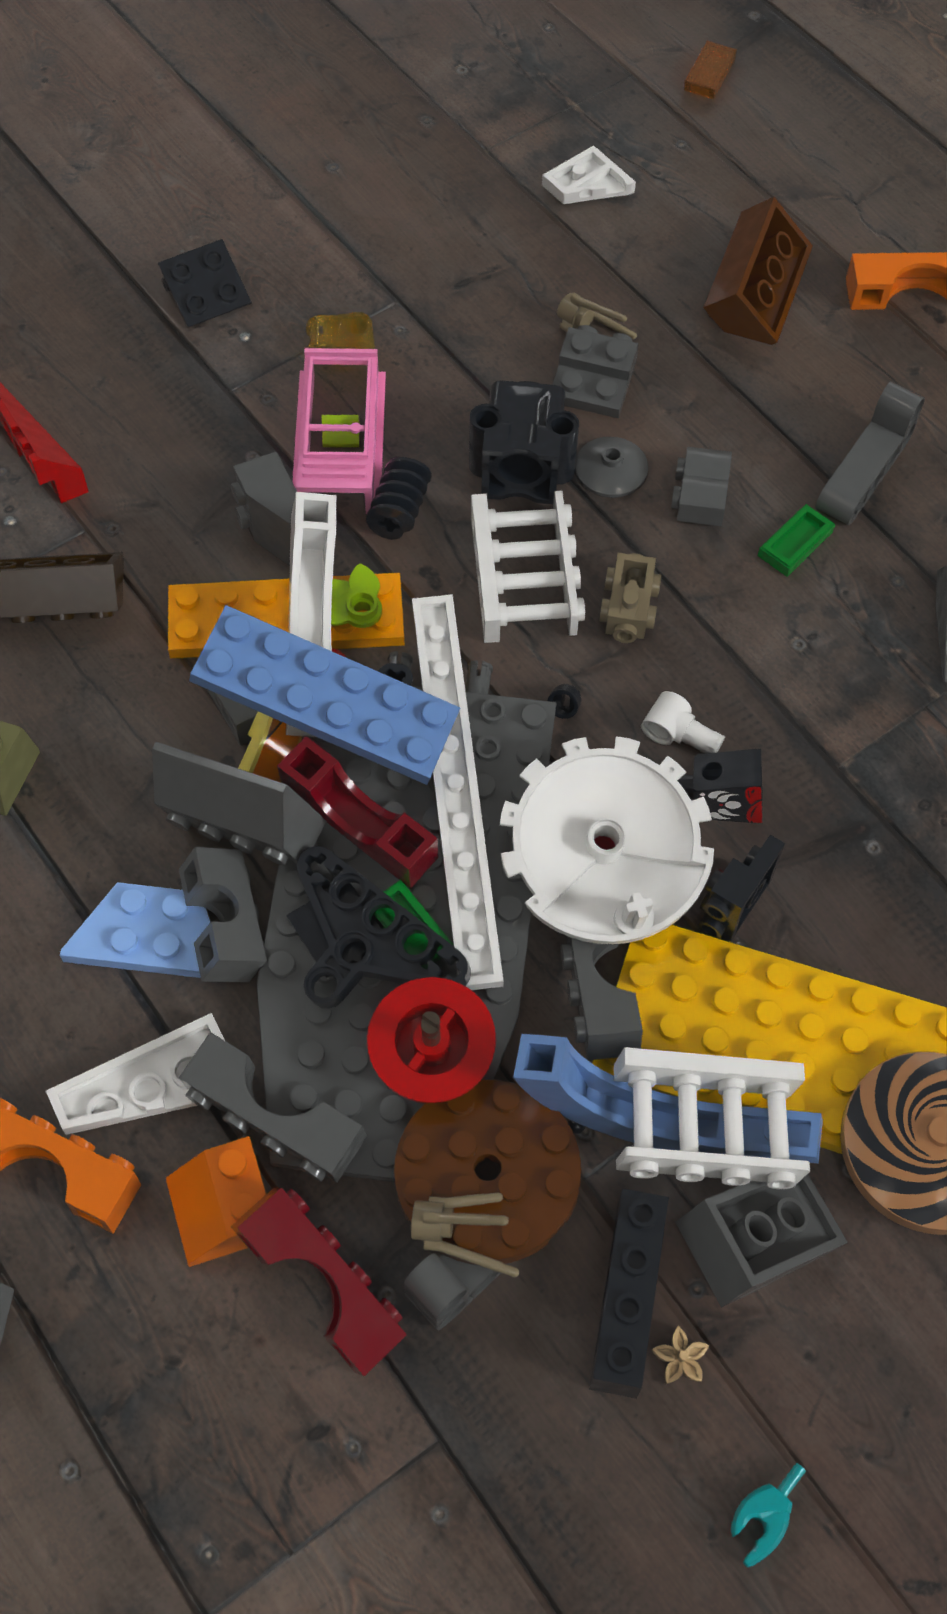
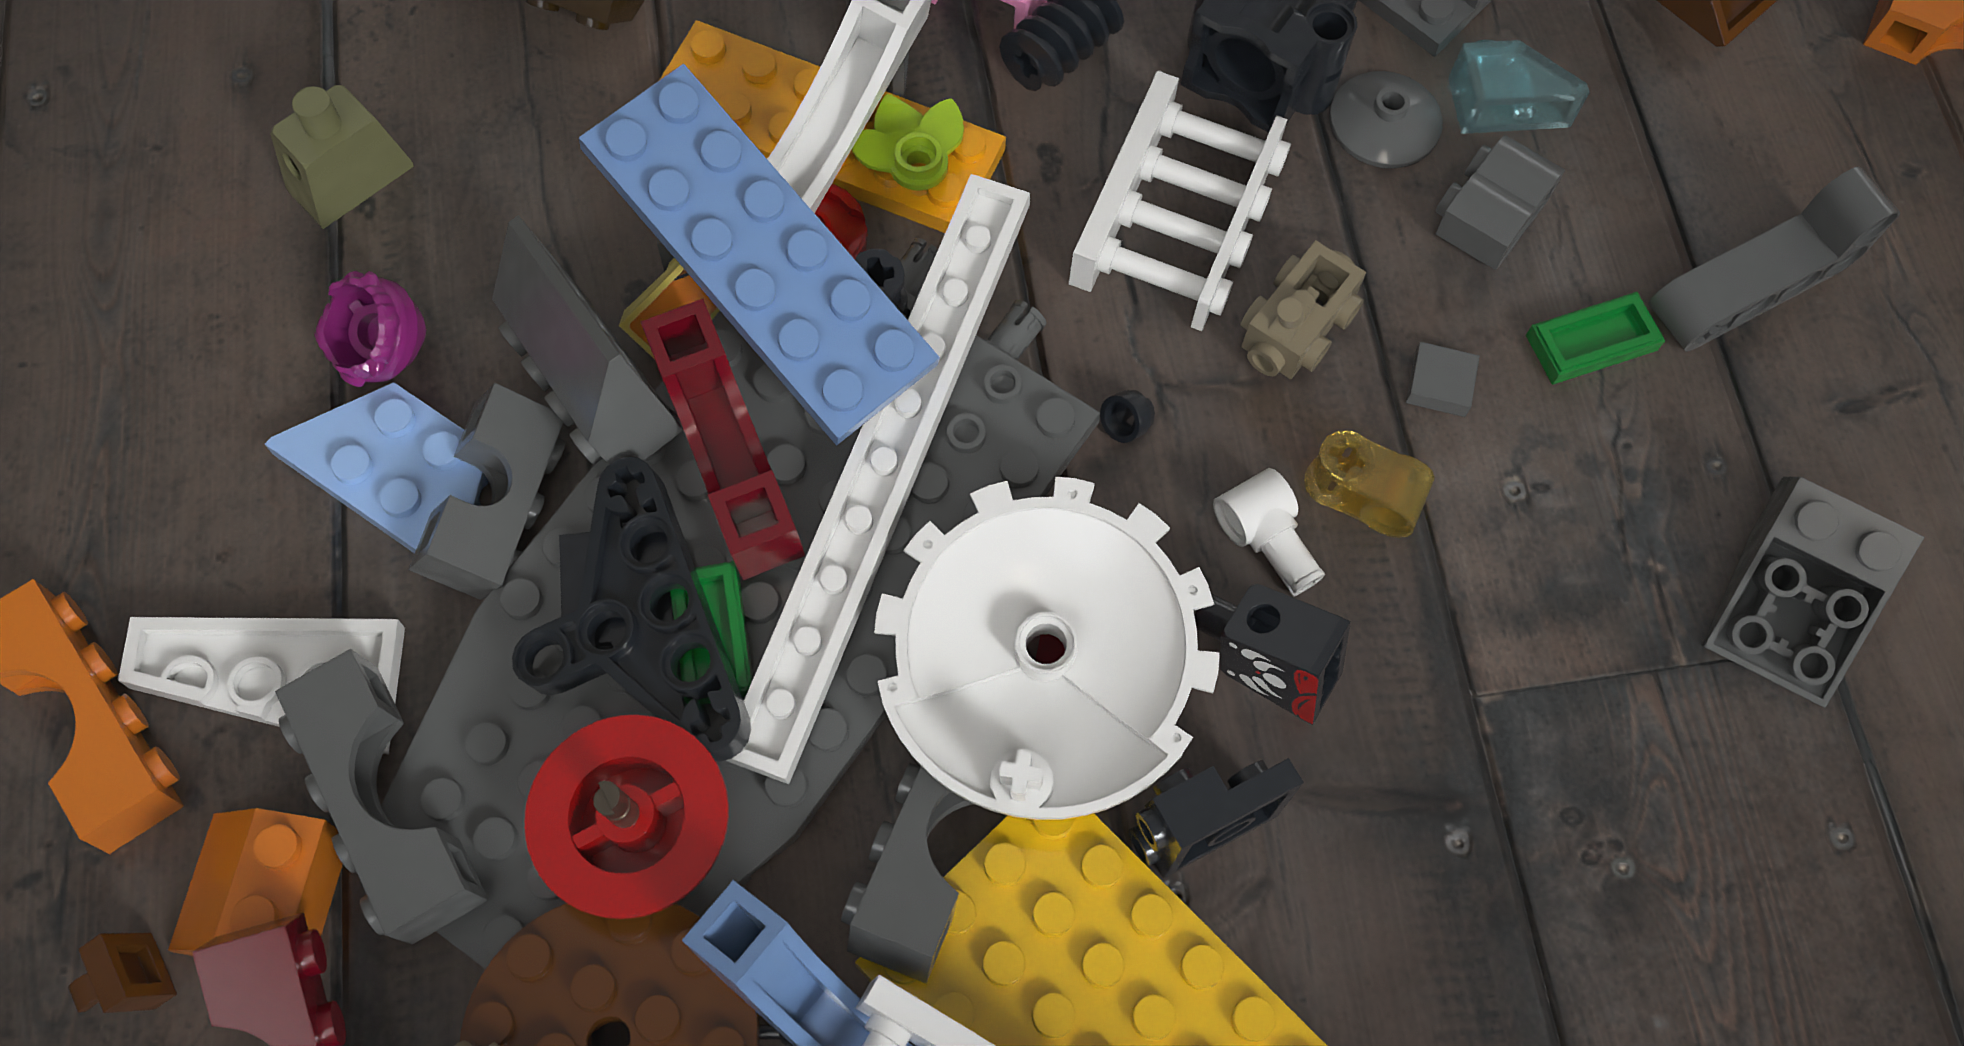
camera: 25 degrees right, 5 degrees up
(87, 856) = (369, 328): none -> magenta hair
(175, 1289) = (122, 974): none -> reddish brown tile
(674, 418) = (1512, 89): none -> clear light blue slope
(724, 674) = (1374, 483): none -> clear yellow piece
(727, 600) = (1442, 379): none -> dark grey tile

